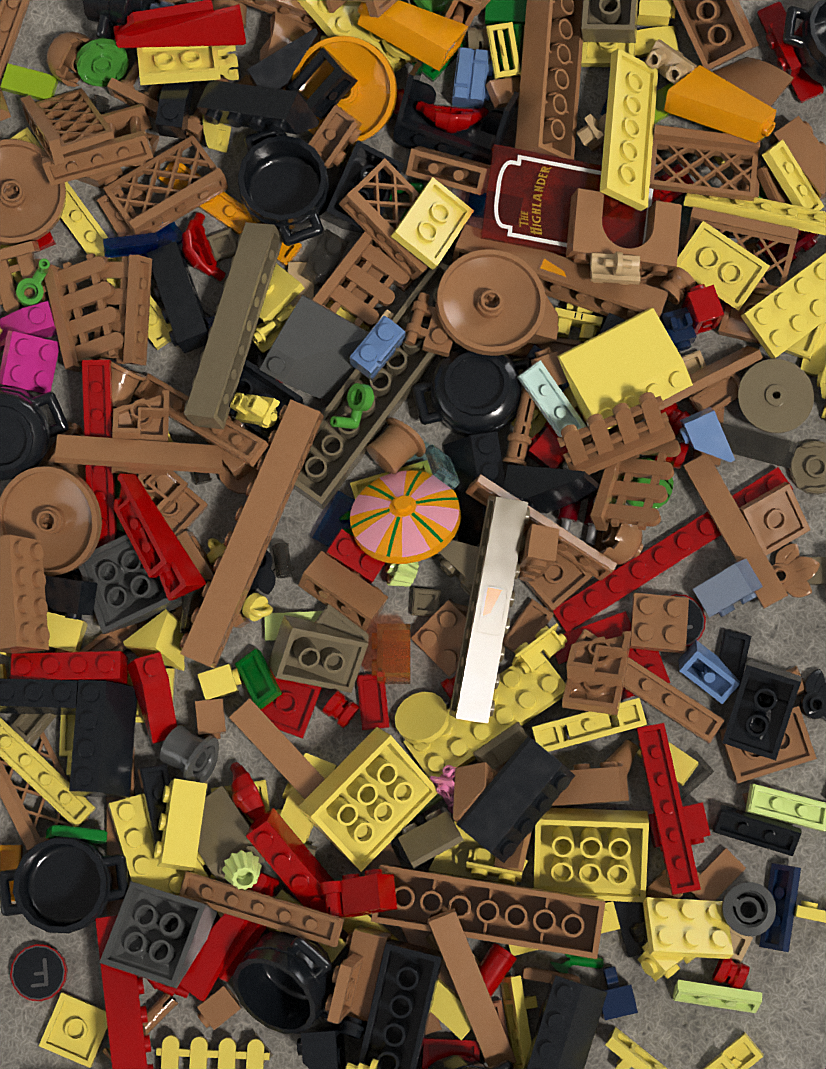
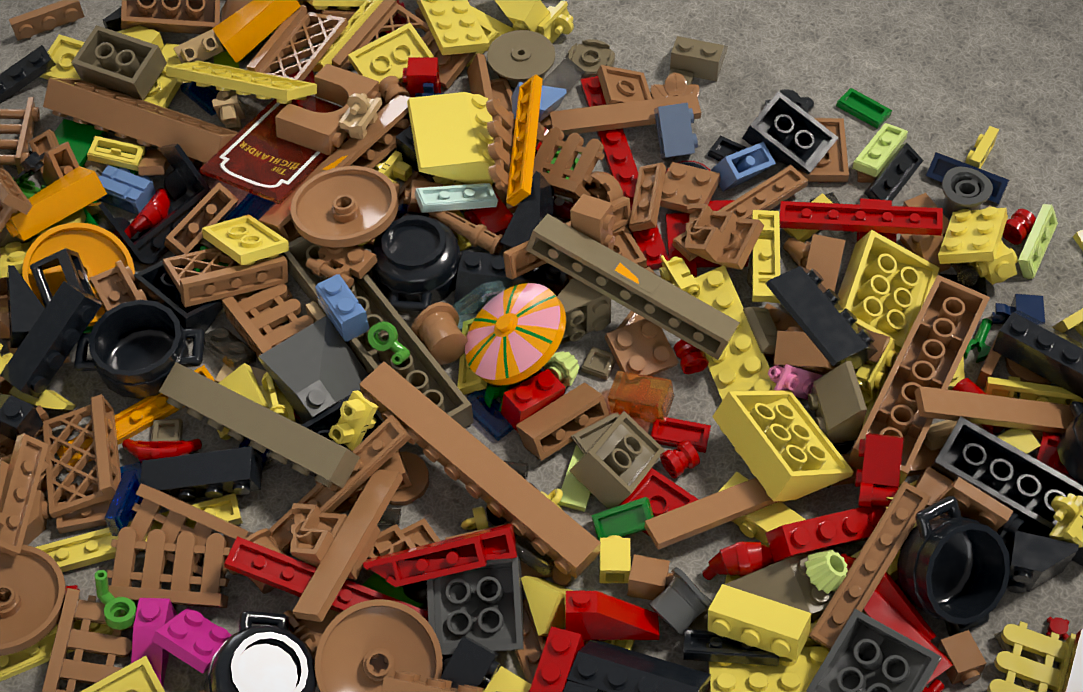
camera: 70 degrees left, 25 degrees down
(422, 718) = (709, 387): light yellow tile -> none
(630, 444) = (524, 141): none -> light orange tile
(630, 587) = (647, 197): none -> medium nougat tile

